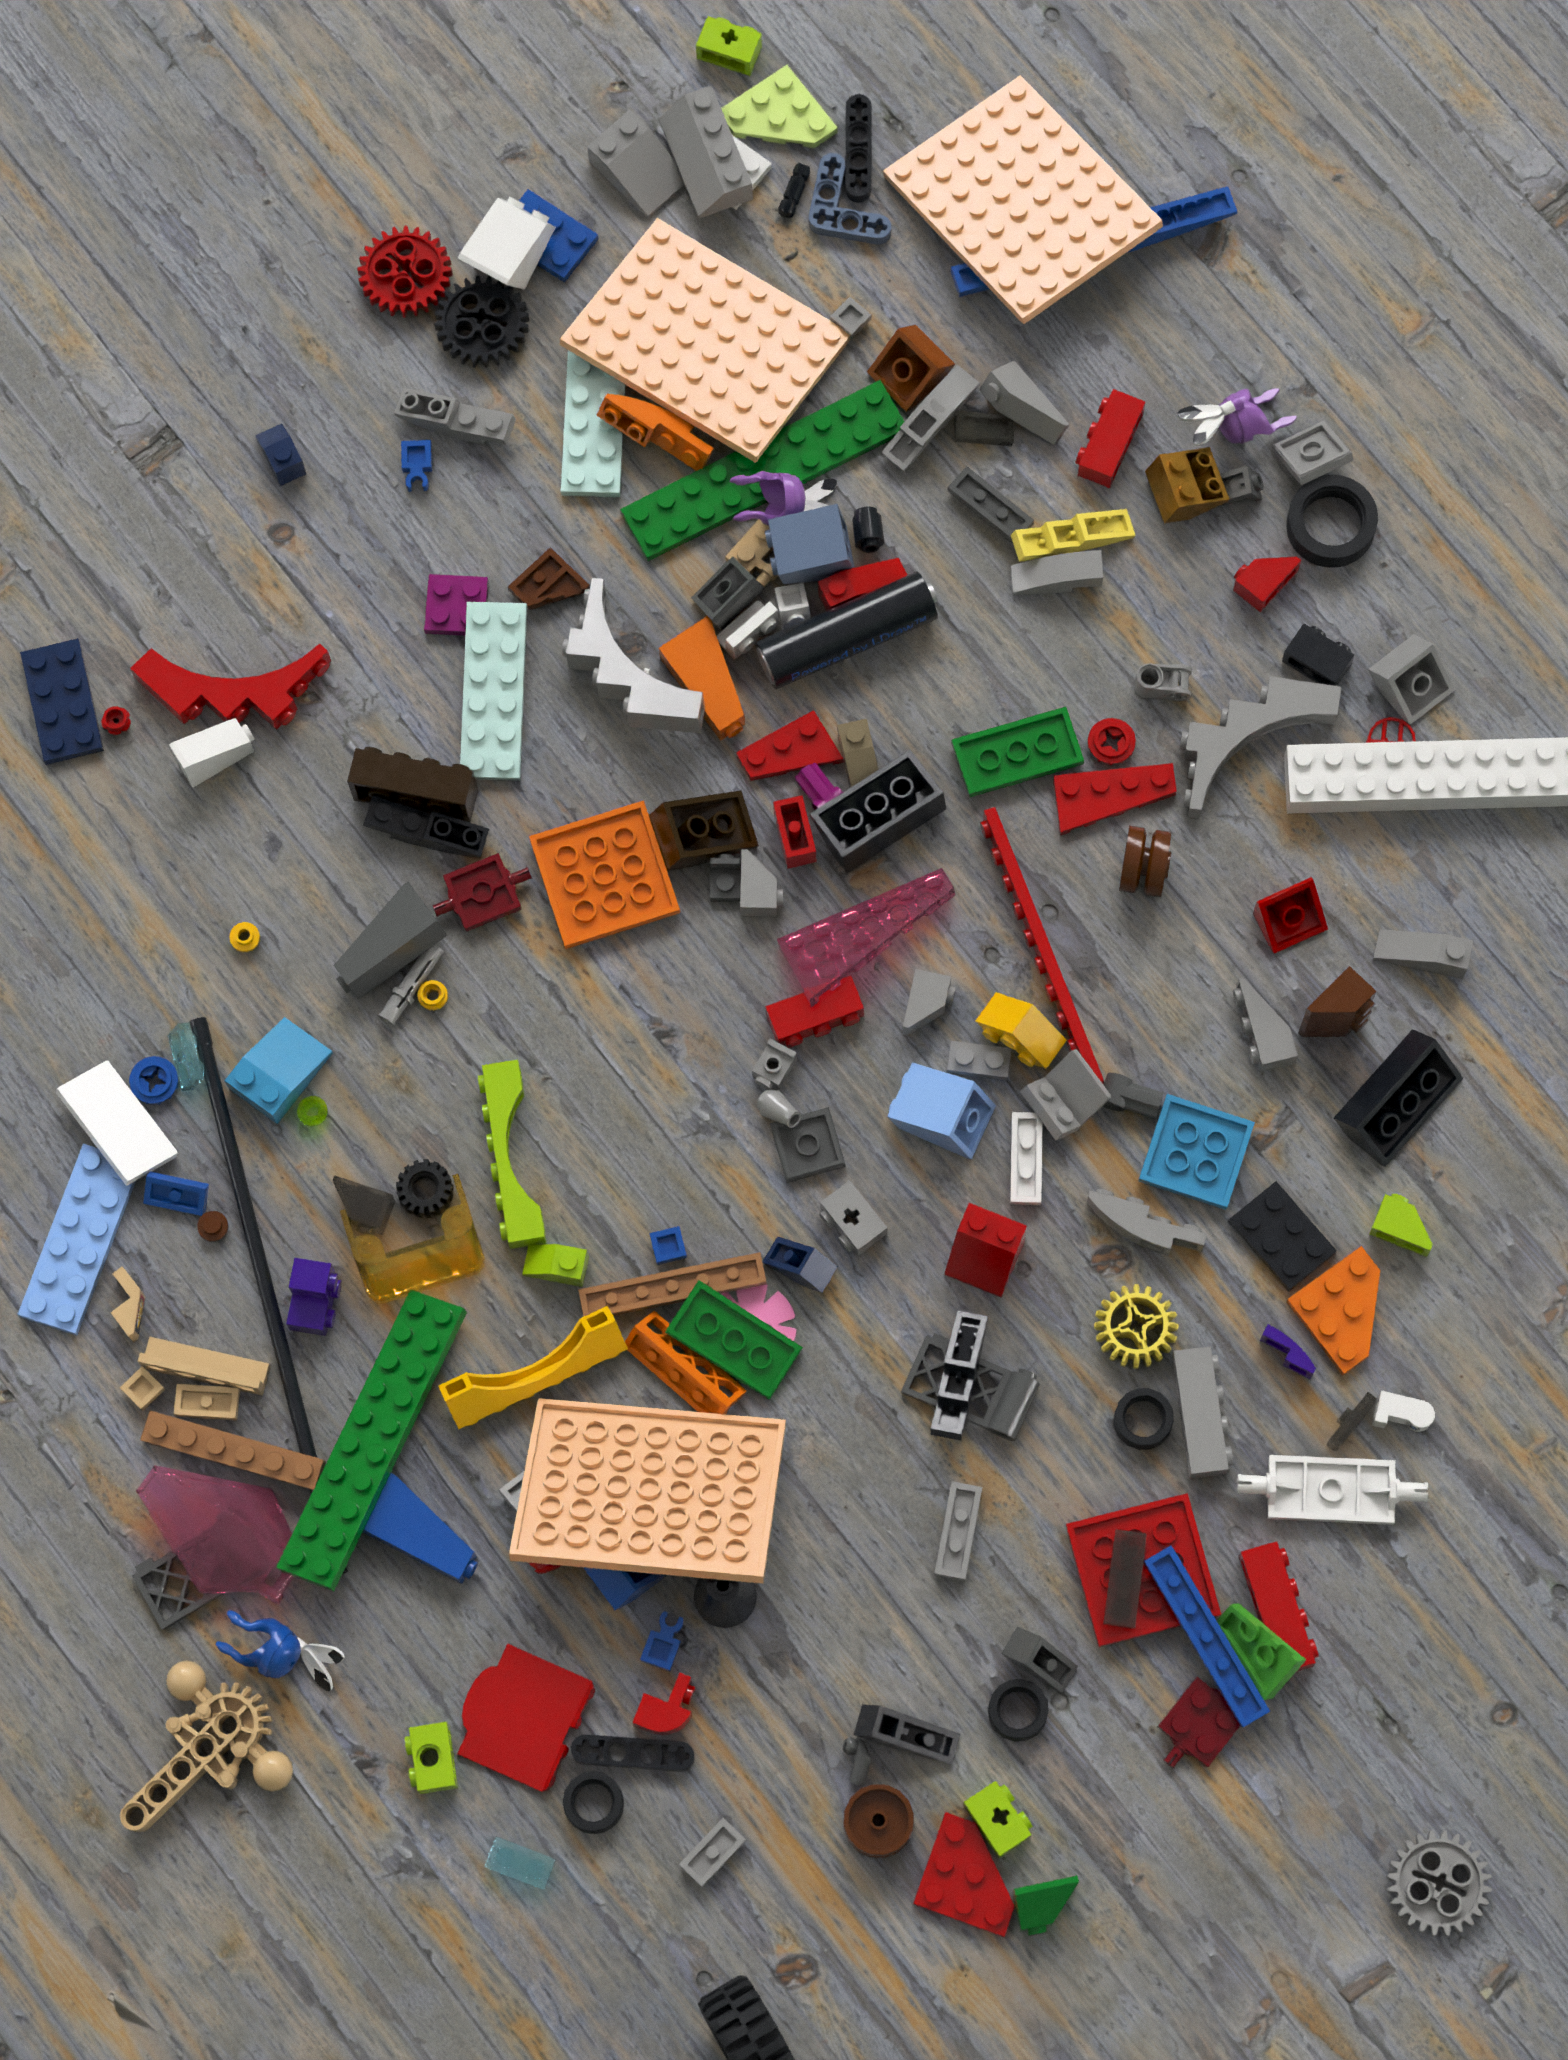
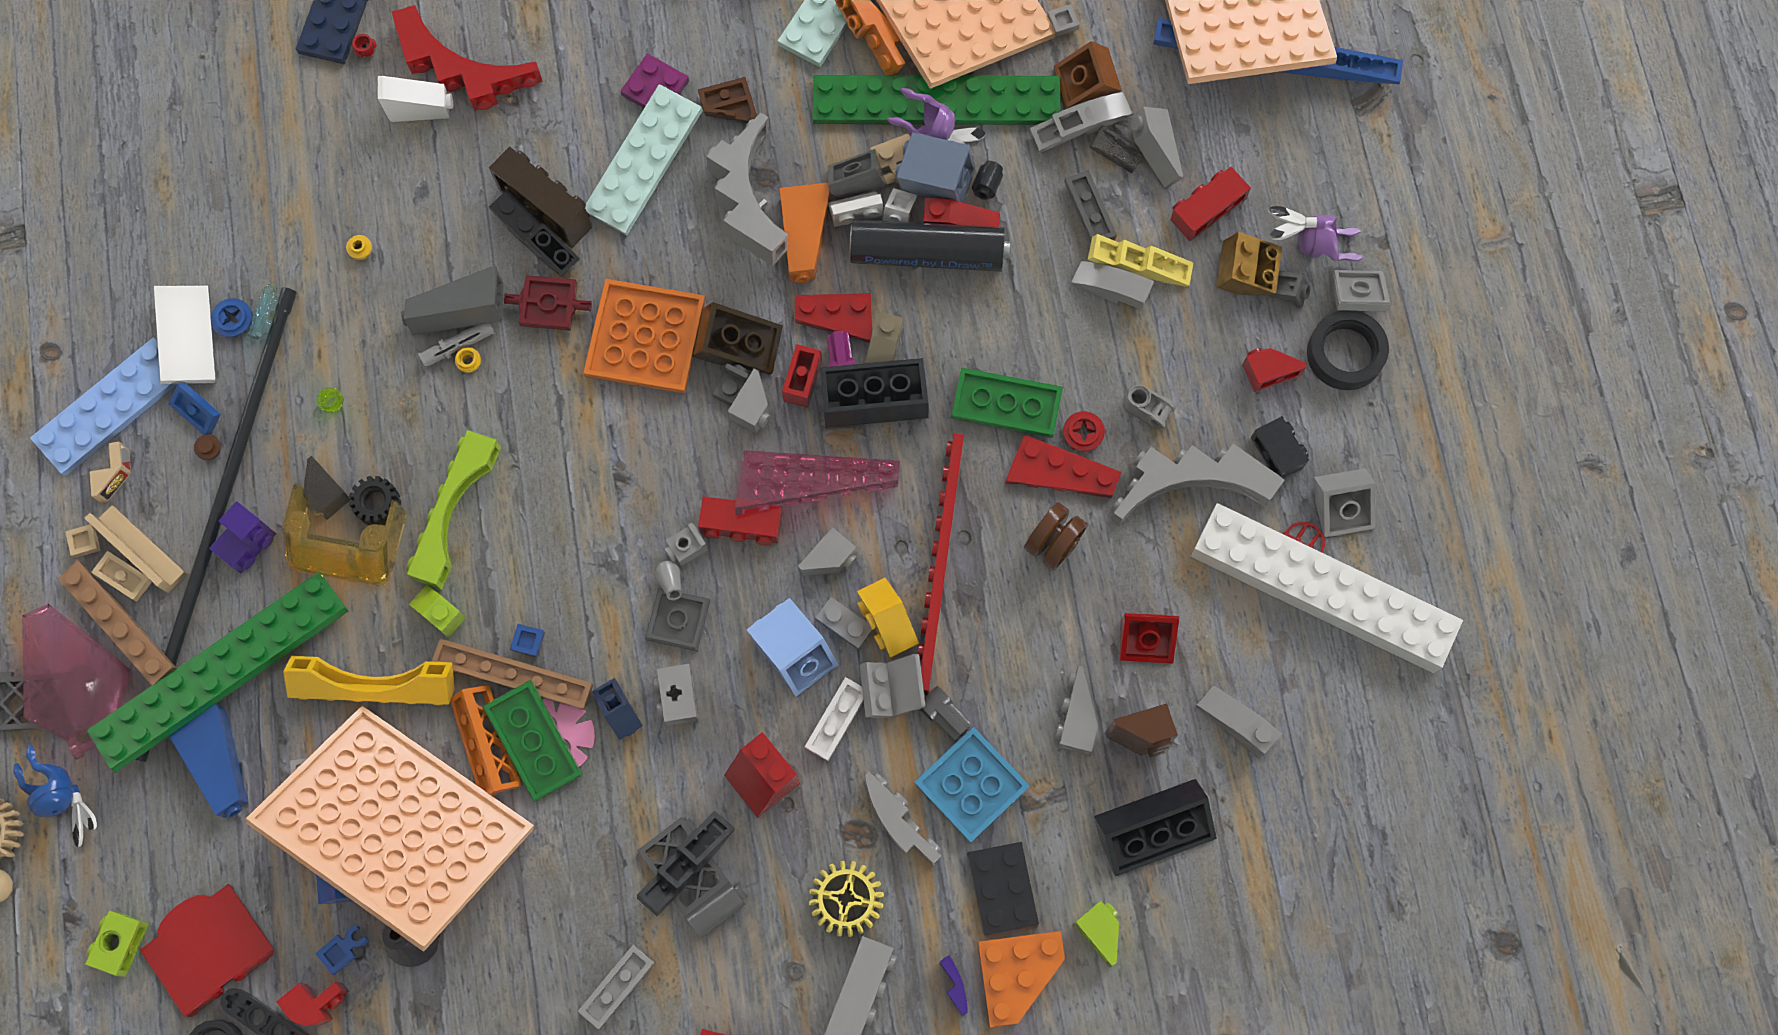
camera: 25 degrees right, 0 degrees up
(278, 1069) = (322, 356): dark azure slope -> none
(1158, 1400) = (792, 966): black tyre -> none

